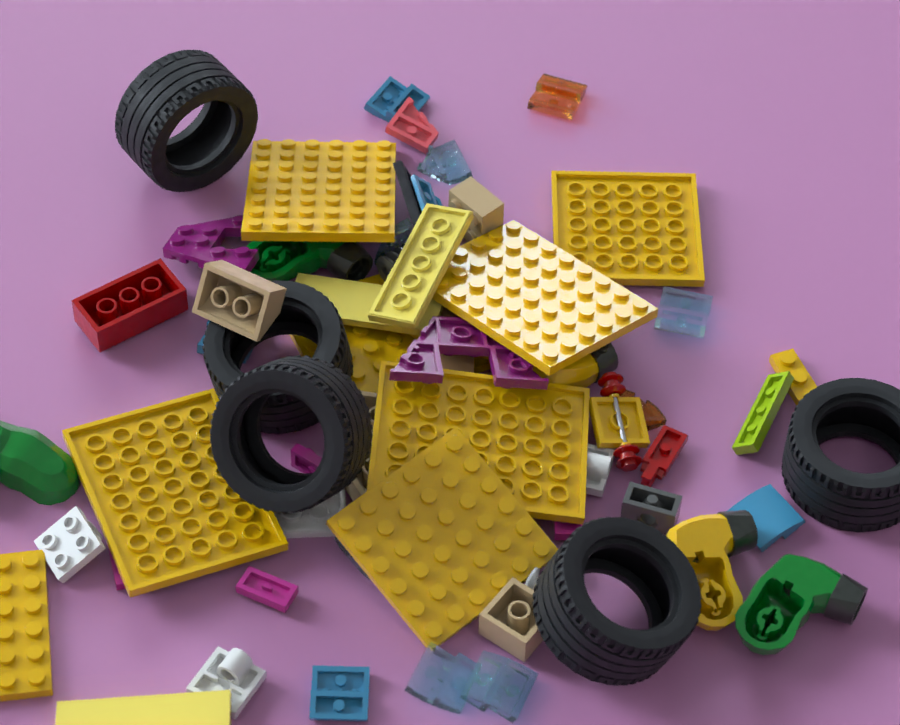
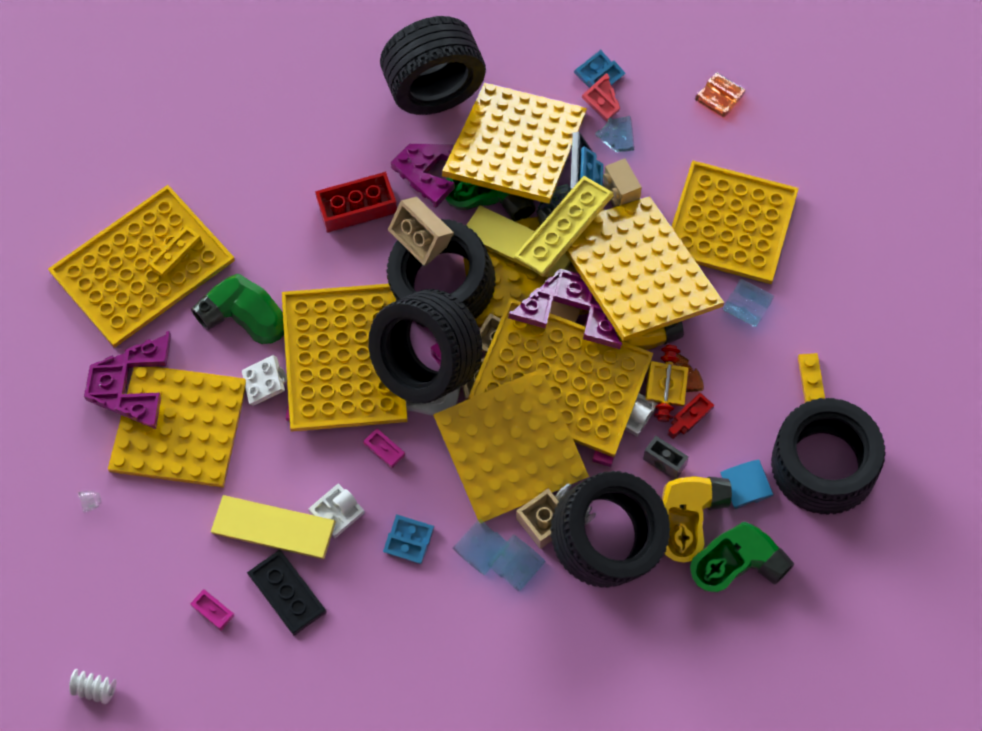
camera: 20 degrees right, 15 degrees up
(762, 413) = (775, 400): lime plate -> none

